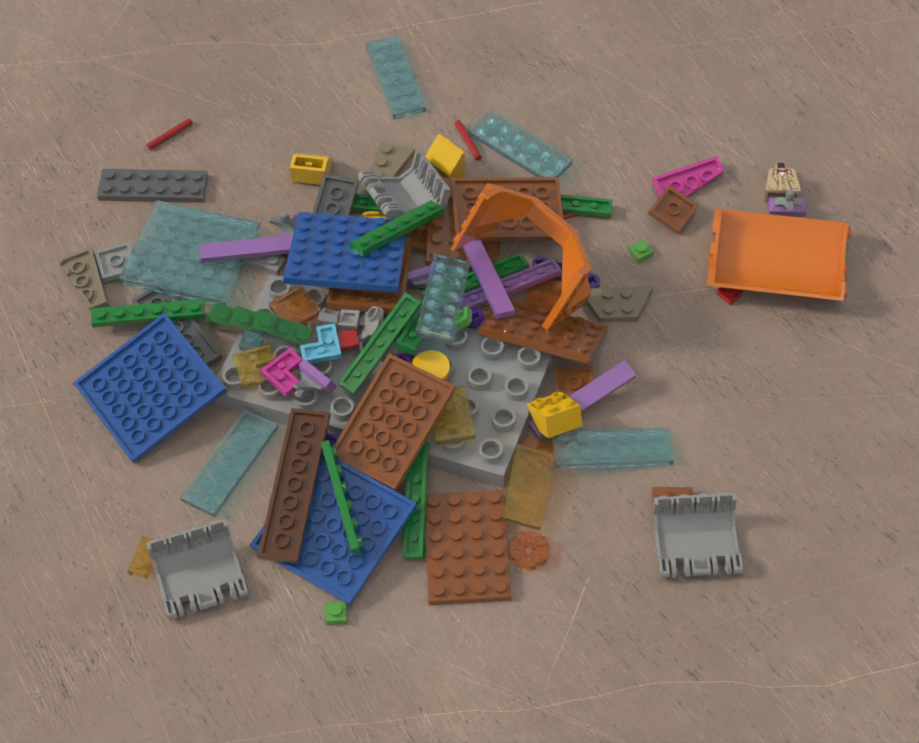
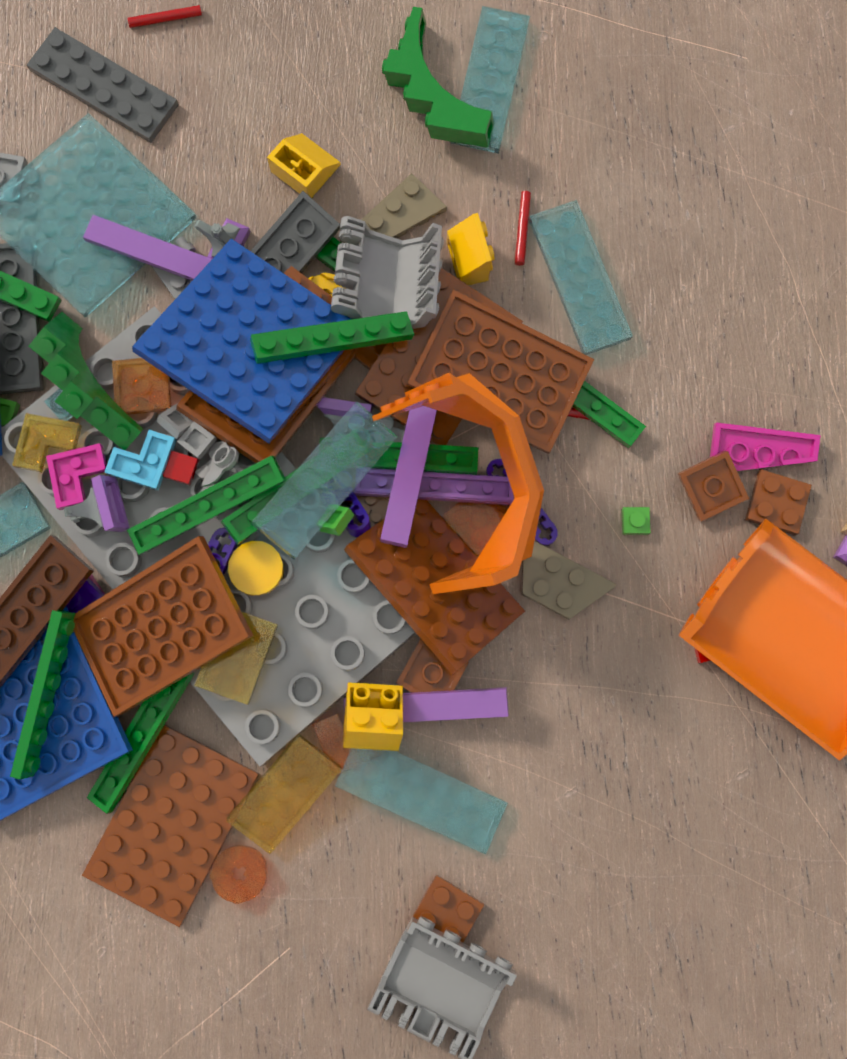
camera: 25 degrees right, 25 degrees up
(383, 101) = (445, 115): none -> green arch
(715, 197) = (779, 501): none -> dark orange plate

